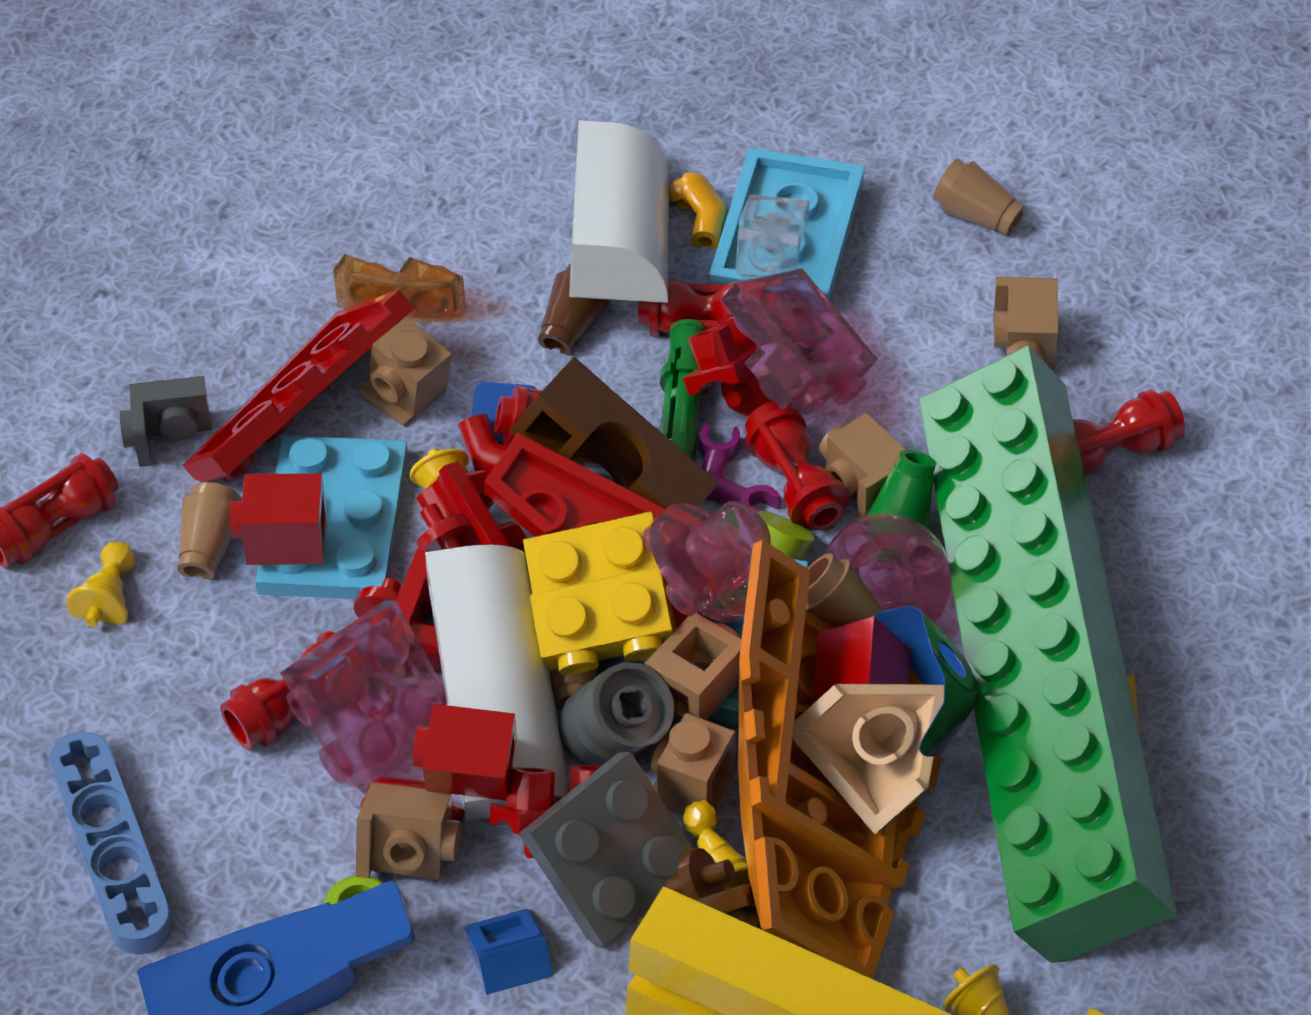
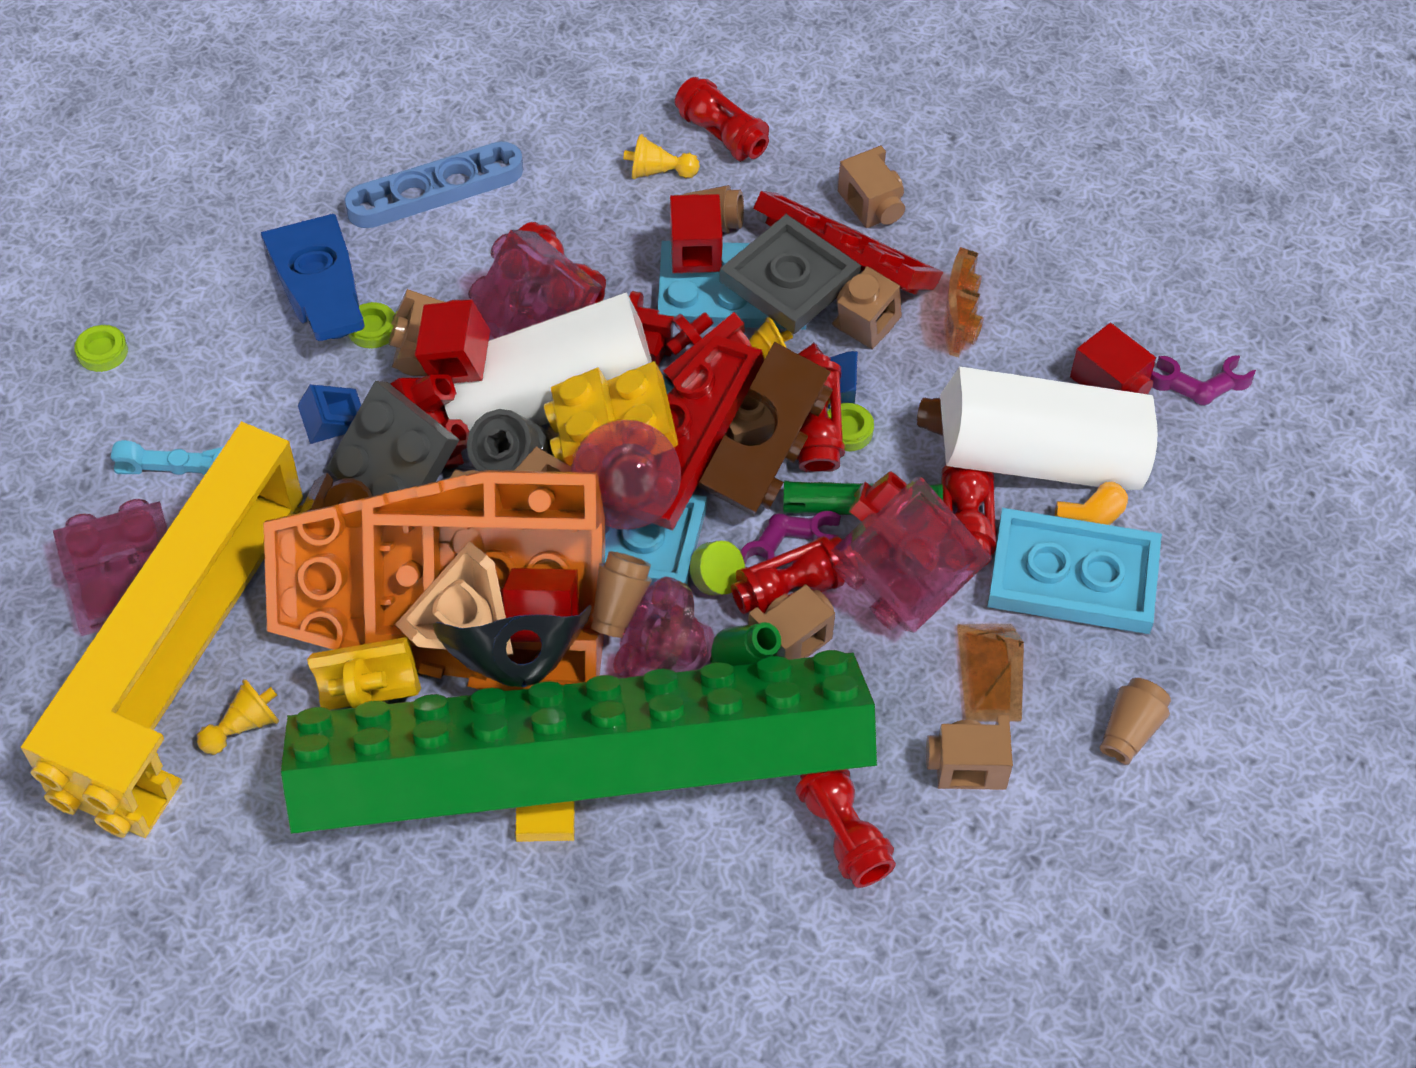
camera: 85 degrees right, 5 degrees up
(164, 409) = (817, 166): dark grey bracket -> none
(205, 351) = (871, 188): none -> medium nougat brick
(357, 431) = (789, 273): none -> dark grey plate
(512, 165) = (1113, 362): none -> red brick
(539, 104) = (1200, 391): none -> magenta arm
(770, 235) = (1041, 537): clear bracket -> none
(911, 305) = (991, 671): none -> clear orange slope
(948, 866) = (365, 673): none -> yellow hips

